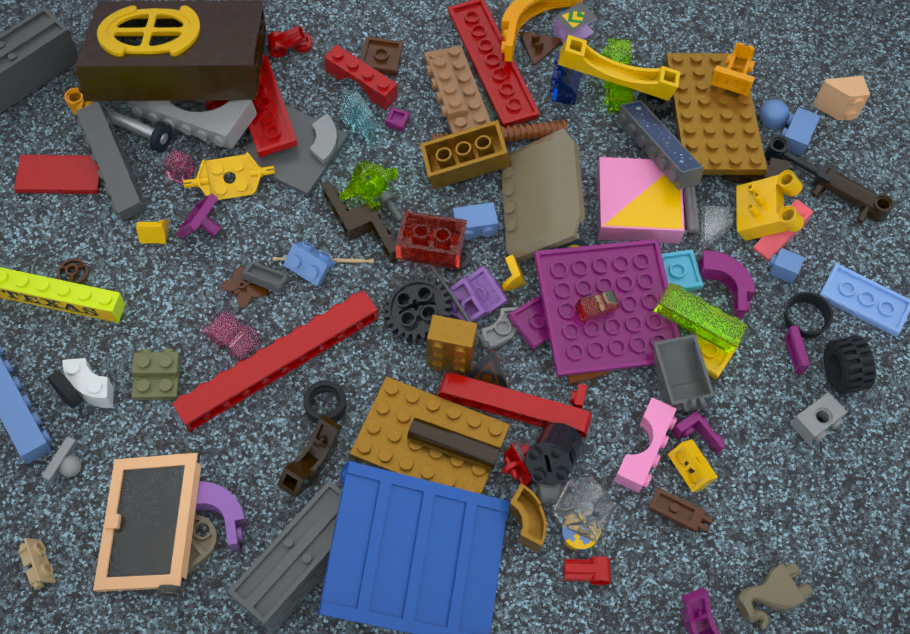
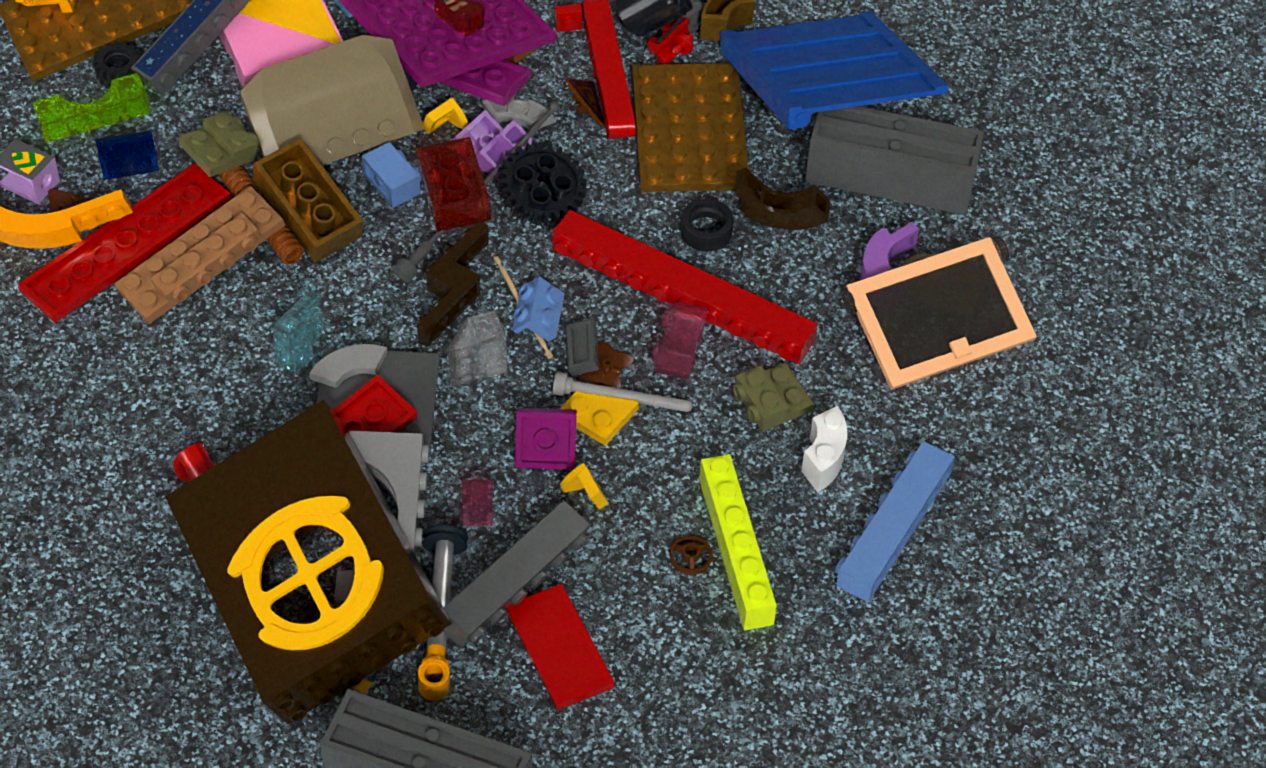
camera: 115 degrees left, 10 degrees down
(34, 553) = (1054, 390): tan hinge -> none
(63, 462) = (931, 428): light grey tile -> none
(64, 389) = (850, 461): black tyre -> none
(208, 264) = (601, 415): none -> yellow wing
(212, 173) = (462, 439): yellow plate -> none
(240, 253) = (566, 385): none -> light grey piece
(287, 206) = (478, 350): none -> clear slope
(369, 182) = (392, 292): clear neon green piece -> none
(377, 86) = (216, 386): red arch -> none
(382, 55) = (170, 368): reddish brown tile -> none
(397, 119) = (269, 310): magenta tile -> none
(451, 344) = (582, 117): pearl gold brick -> none
(453, 443) = (687, 91): dark brown brick -> none
(538, 120) = (220, 144): none -> olive plate
(653, 81) = (110, 76): yellow arch -> none

